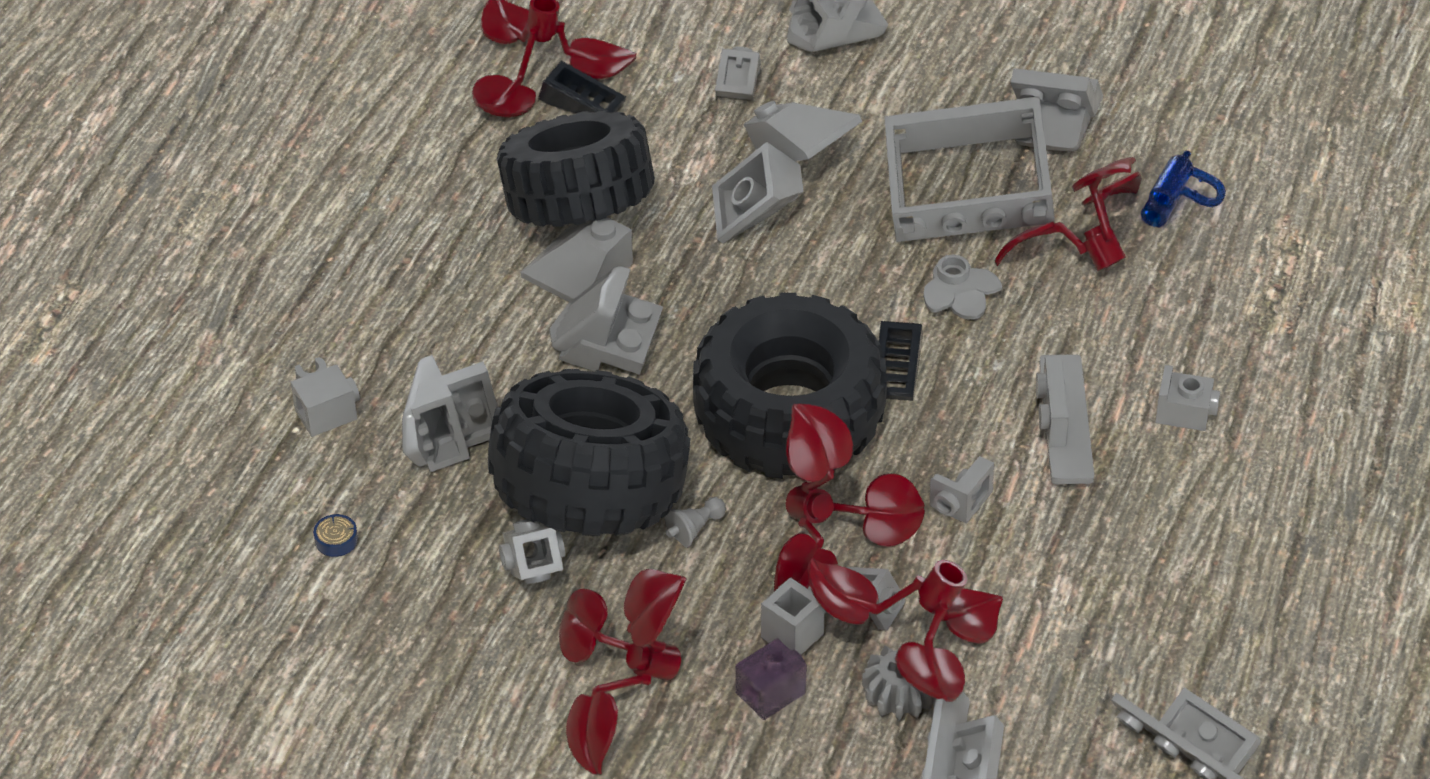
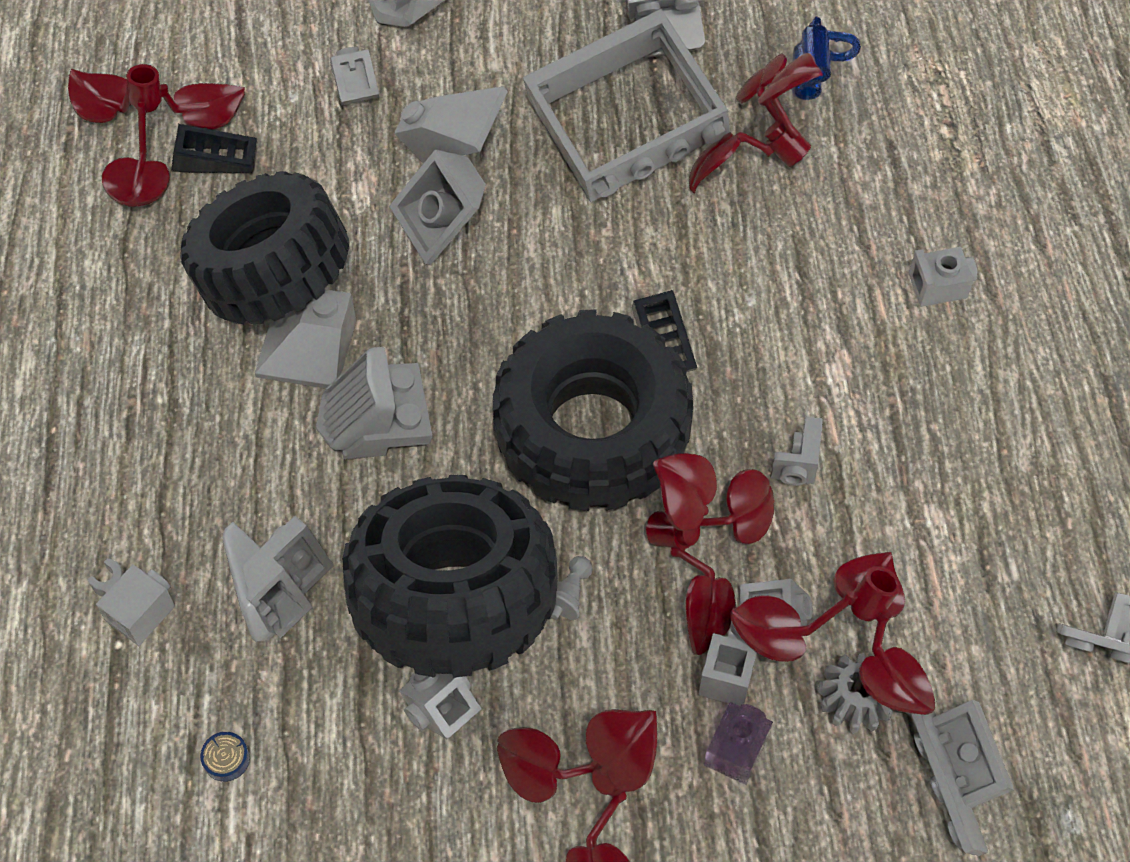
camera: 25 degrees left, 15 degrees up
(960, 287) = (681, 236): light grey plate -> none
(1065, 419) = (847, 337): light grey bracket -> none

